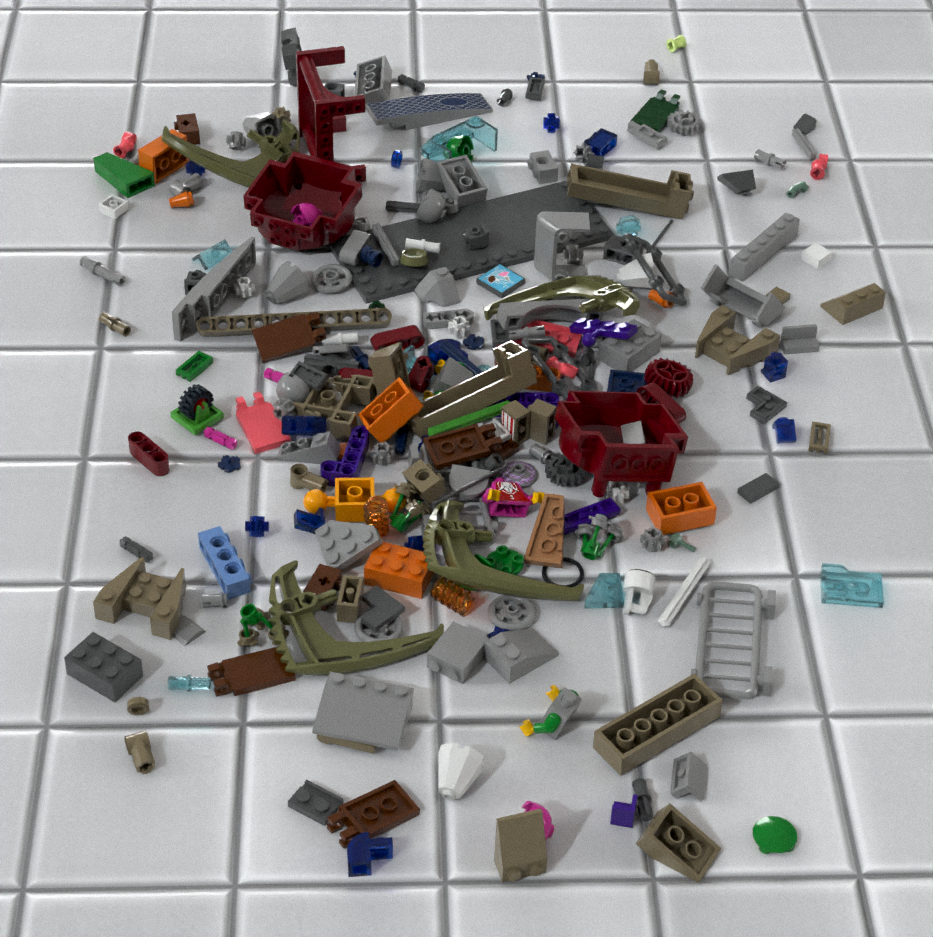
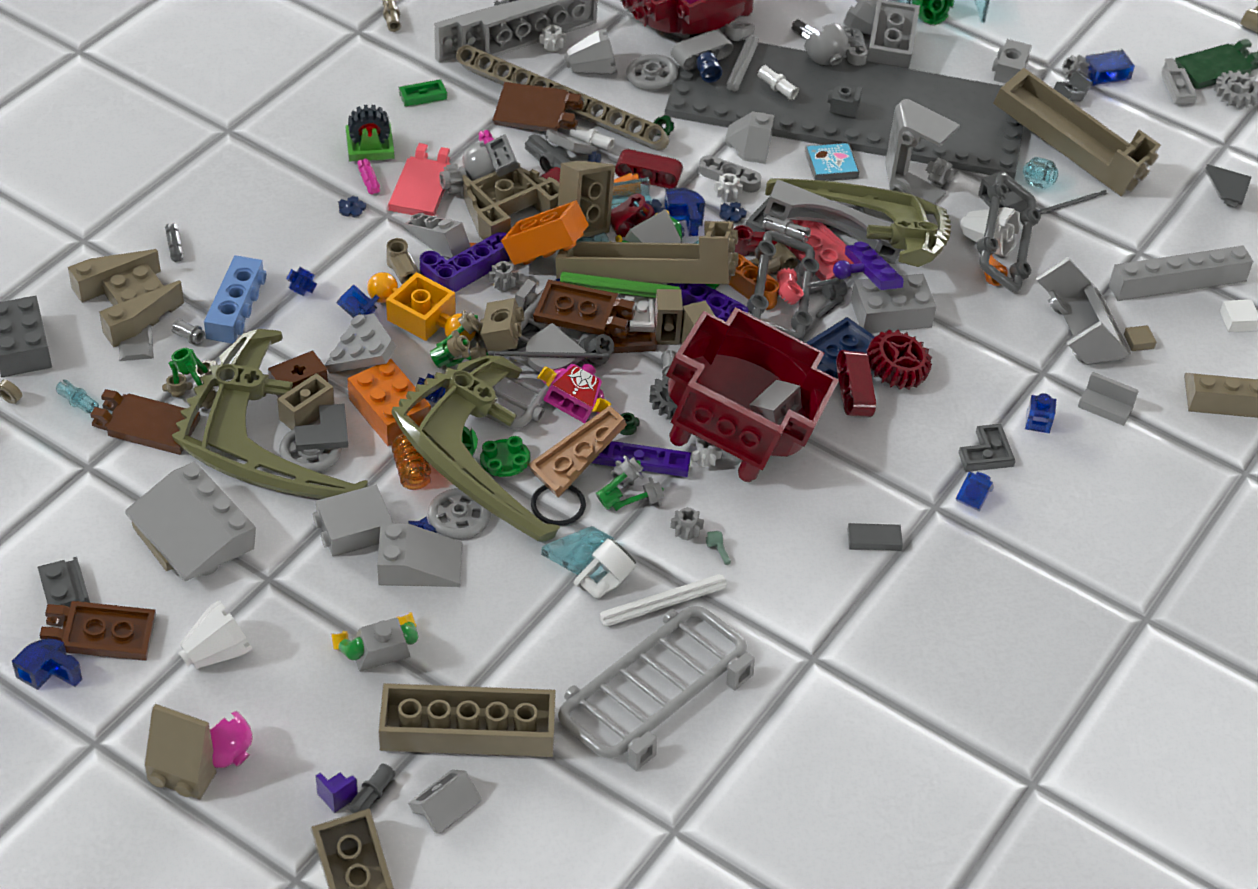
camera: 35 degrees right, 5 degrees up
(148, 453) = (282, 155): dark red beam -> none
(303, 425) = (449, 204): clear blue brick -> none
(377, 514) = (417, 335): clear orange piece -> none
(401, 440) = (542, 272): dark blue axle -> none
(414, 257) = (754, 90): olive hat -> none
(452, 352) = (683, 216): dark blue axle -> none
(519, 472) = (626, 375): dish -> none
(551, 123) = (1074, 18): clear blue gear -> none
(681, 508) = (751, 507): orange brick -> none
(730, 347) = (1013, 363): dark tan wedge -> none
(818, 446) = (991, 526): dark tan tile -> none
(836, 587) = (841, 702): clear light blue piece -> none

